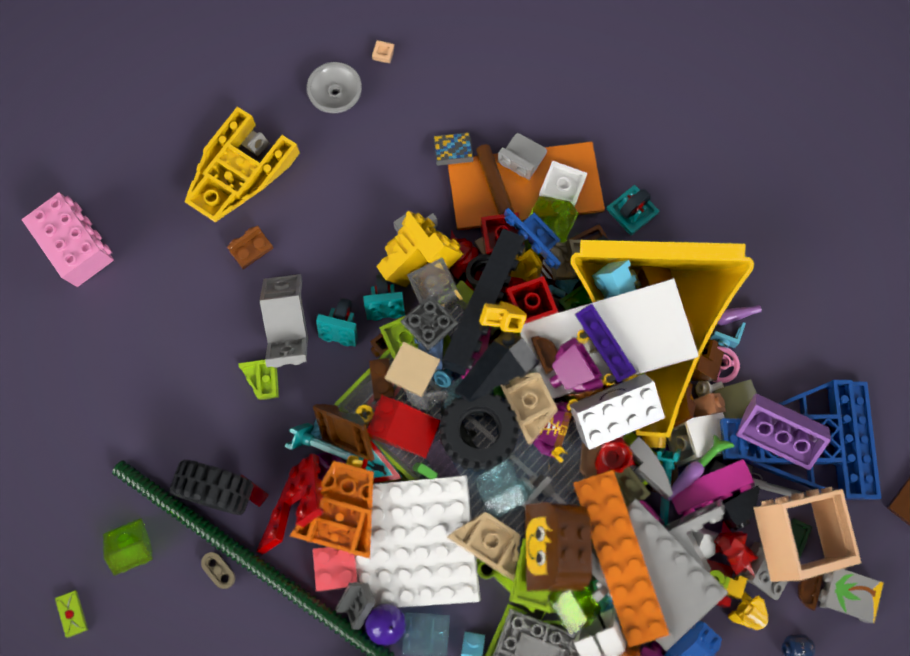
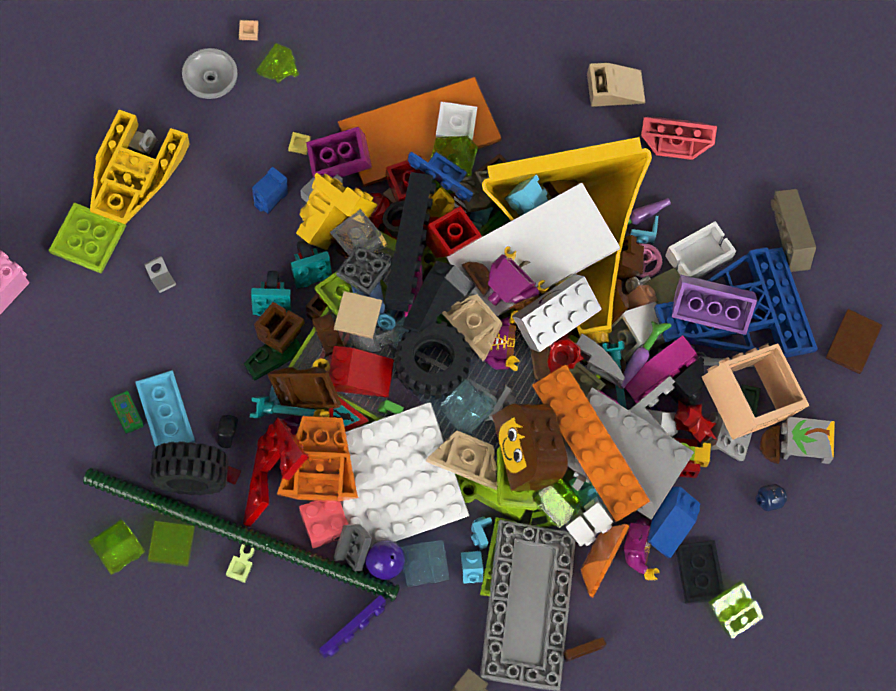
camera: 20 degrees left, 5 degrees down
(71, 614) = (76, 621): lime tile -> none
(172, 410) = (126, 412): none -> green tile
(178, 228) = (87, 238): none -> lime plate
(181, 555) = (171, 543): none -> clear neon green plate
(209, 418) = (164, 409): none -> medium azure tile
(218, 571) = (211, 550): dark tan plate -> none
(238, 282) = (161, 279): none -> light grey bracket
(242, 595) = (240, 566): none -> yellowish green plate
(249, 247) = (163, 242): dark orange bracket -> none
(261, 378) = (207, 362): lime wing -> none
(263, 450) = (226, 430): none -> black hair
(284, 321) = (218, 302): light grey bracket -> none
(329, 382) = (268, 359): none -> dark green wing
(337, 359) = (278, 327): none -> reddish brown plate
(363, 216) = (269, 190): none -> blue hips
(403, 90) = (278, 64): none -> clear neon green slope
(405, 174) = (298, 143): none -> light yellow tile
(439, 194) = (339, 153): none -> magenta brick
(453, 149) = (341, 110): tile -> none
(486, 619) = (478, 536): none -> medium azure bracket
(494, 178) = (388, 129): reddish brown piece -> none
(504, 315) = (432, 249): yellow brick -> none
(522, 156) = (410, 103): light grey bracket -> none
(605, 343) = (532, 254): dark purple plate -> none
(633, 209) = (528, 133): teal plate -> none
(731, 177) = (614, 85): none -> tan slope
(750, 612) = (721, 475): yellow brick -> none
(781, 370) = (701, 252): none -> white piece
(784, 244) = (677, 137): none -> coral wedge
(883, 366) = (793, 230): none -> dark tan wedge

